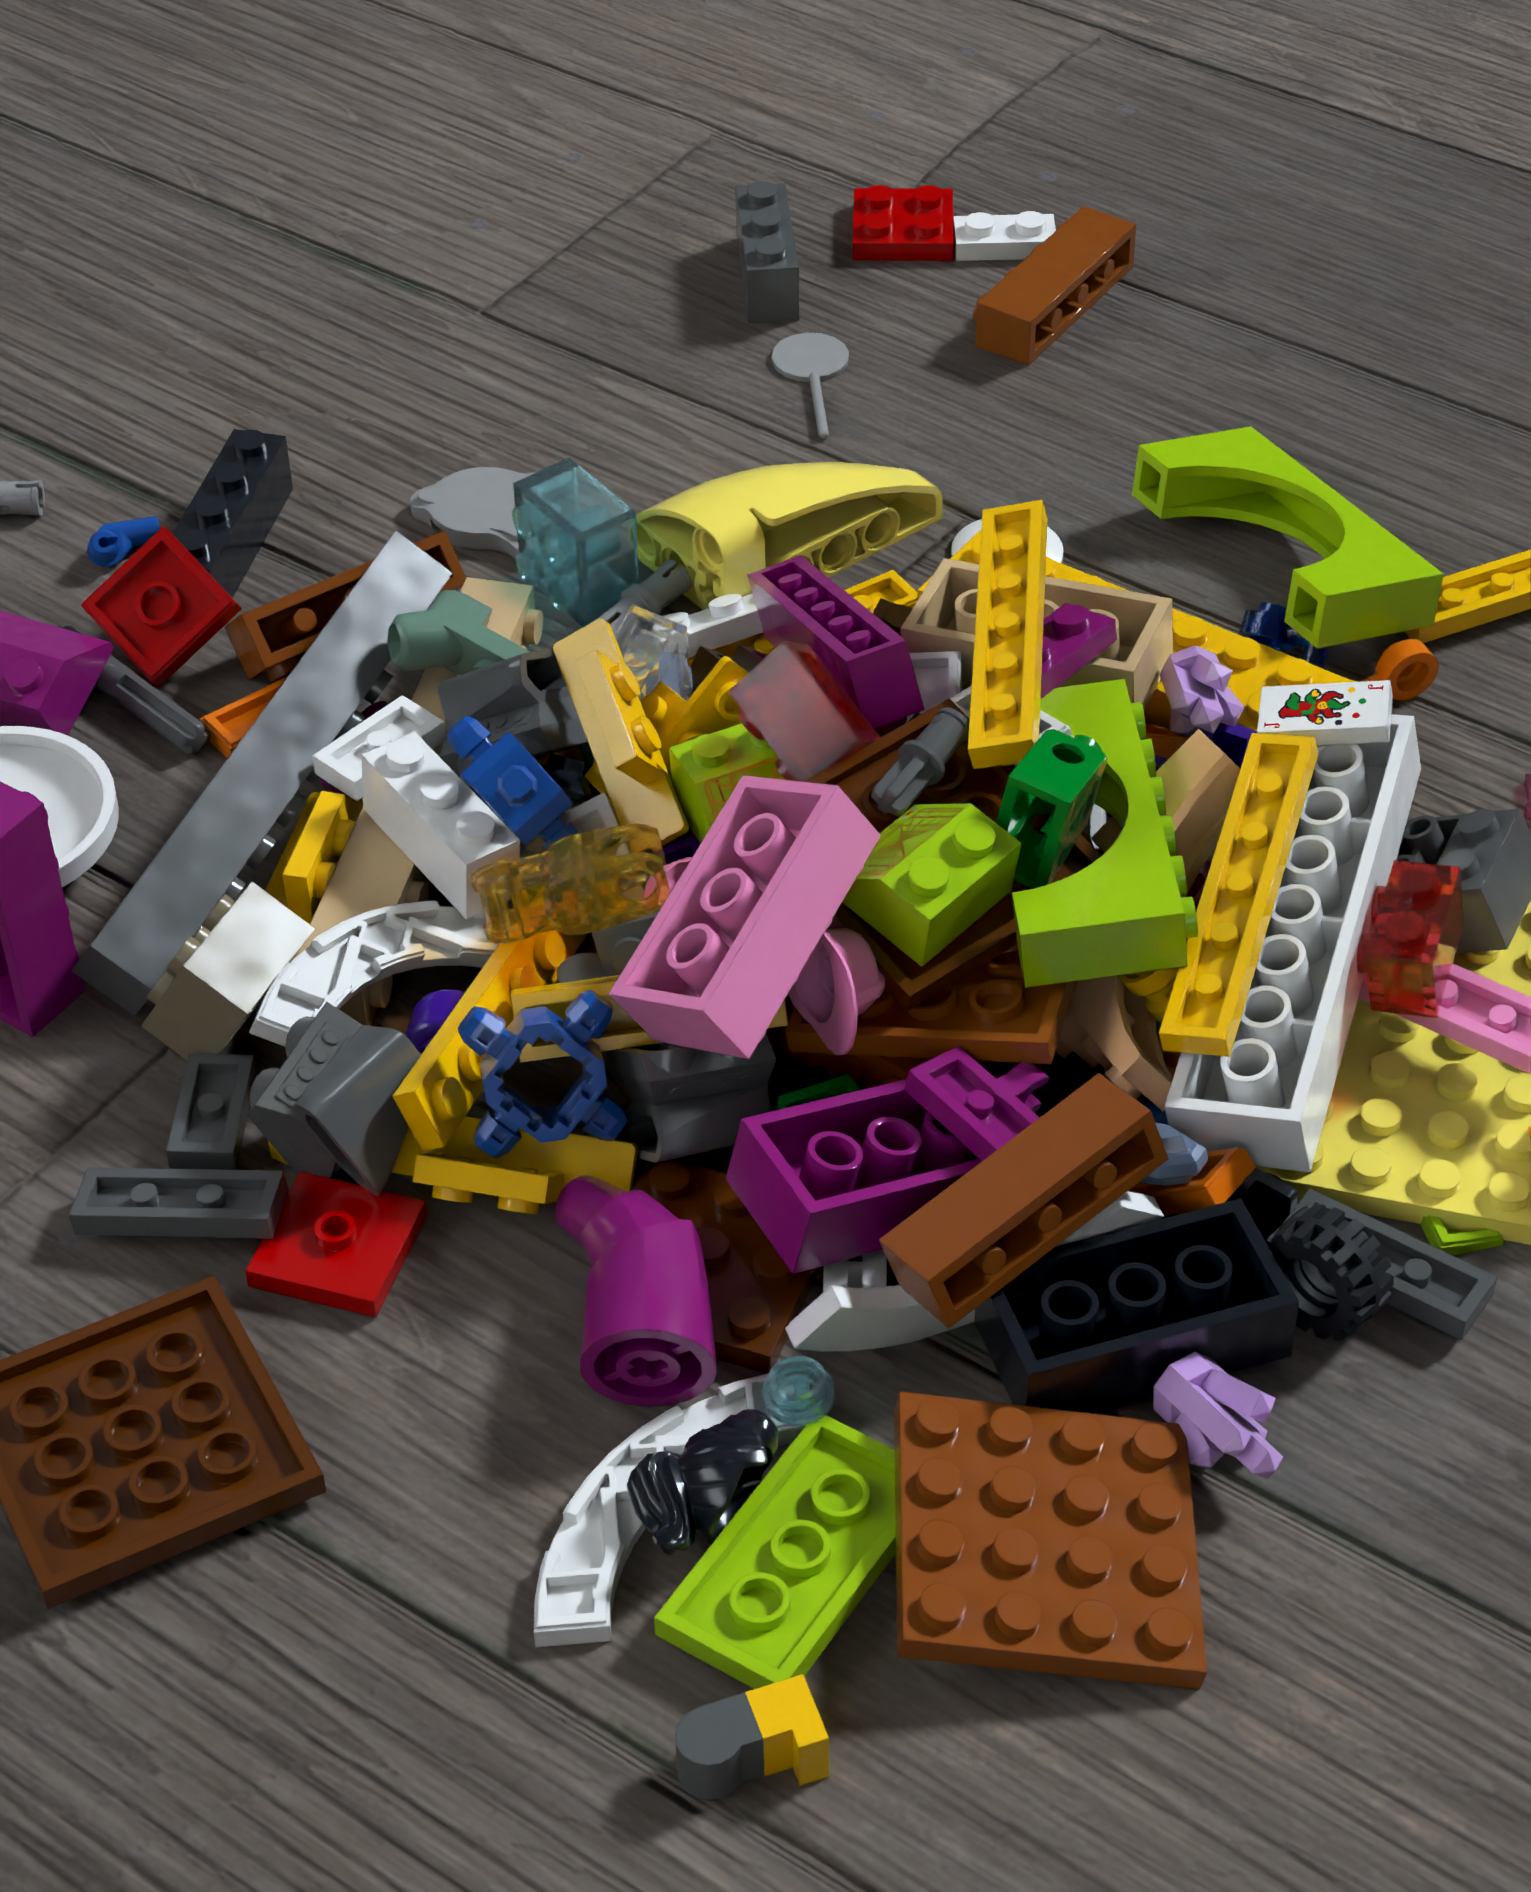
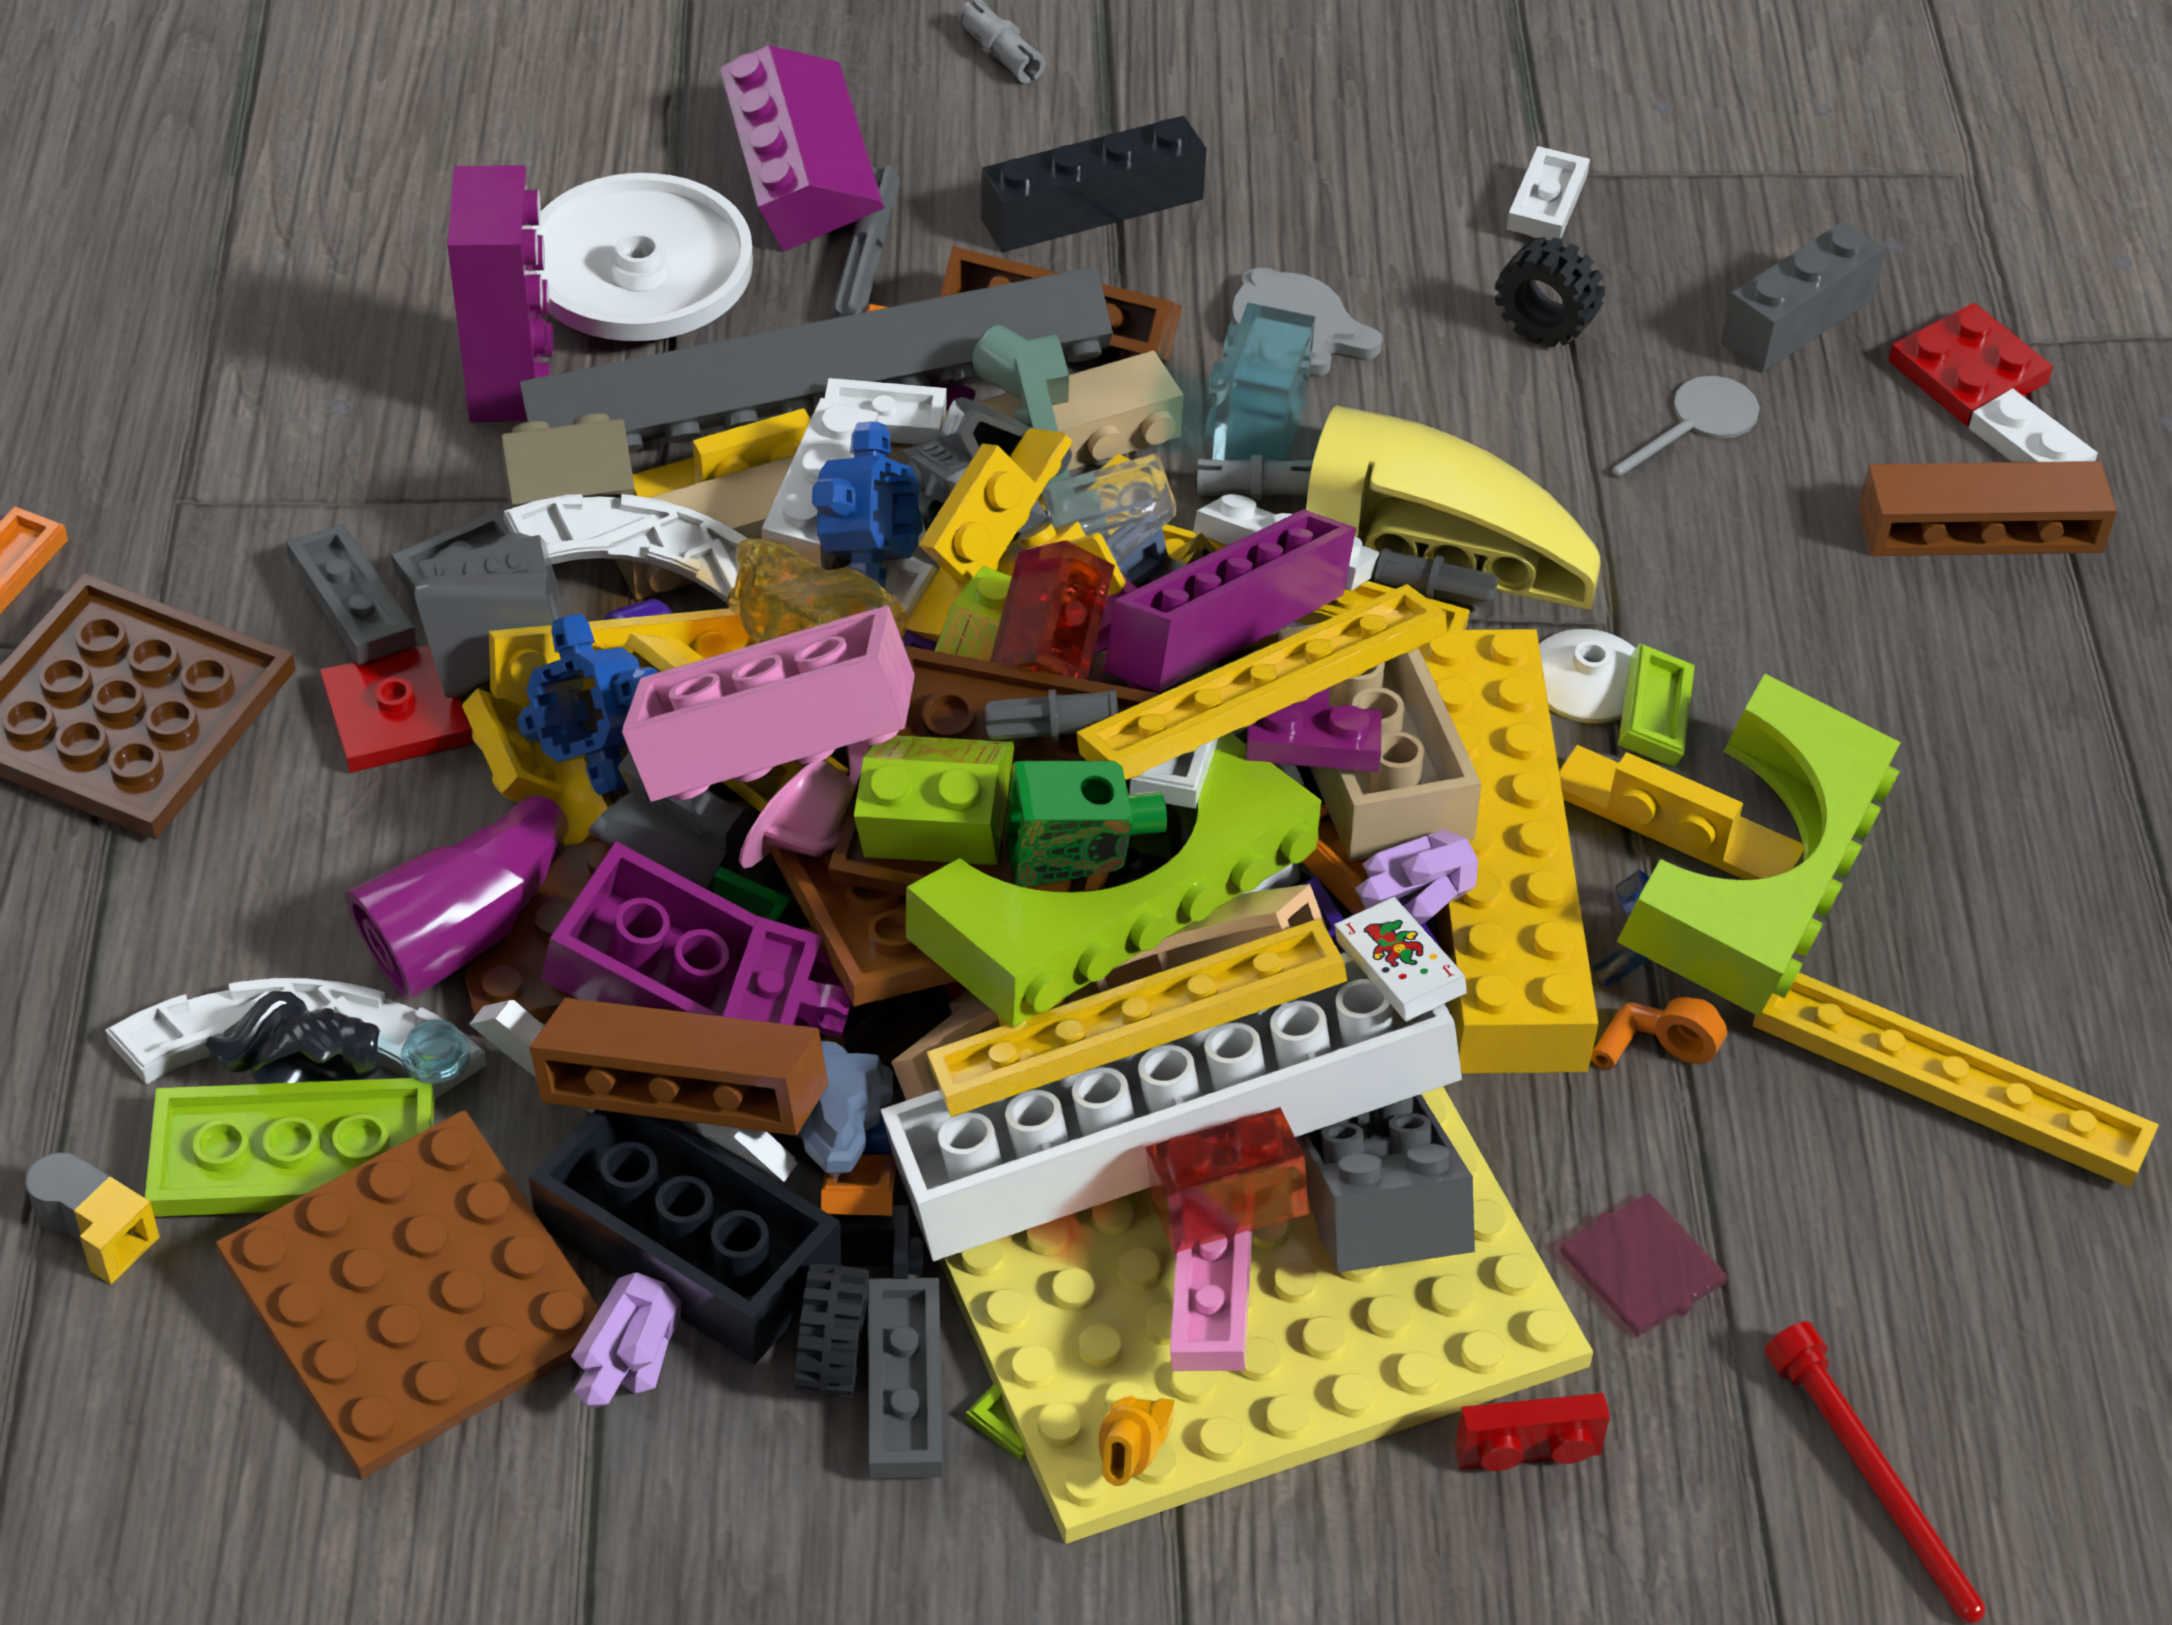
camera: 50 degrees right, 5 degrees up
(118, 539) = (1024, 138): blue arm -> none
(161, 607) = (946, 202): red plate -> none
(516, 314) = (1548, 194): none -> white plate
(619, 336) = (1562, 271): none -> black tyre
(859, 562) = (1436, 578): none -> dark grey axle
(1086, 531) = (1656, 705): none -> lime tile
(1214, 563) = (1677, 813): none -> yellow bracket

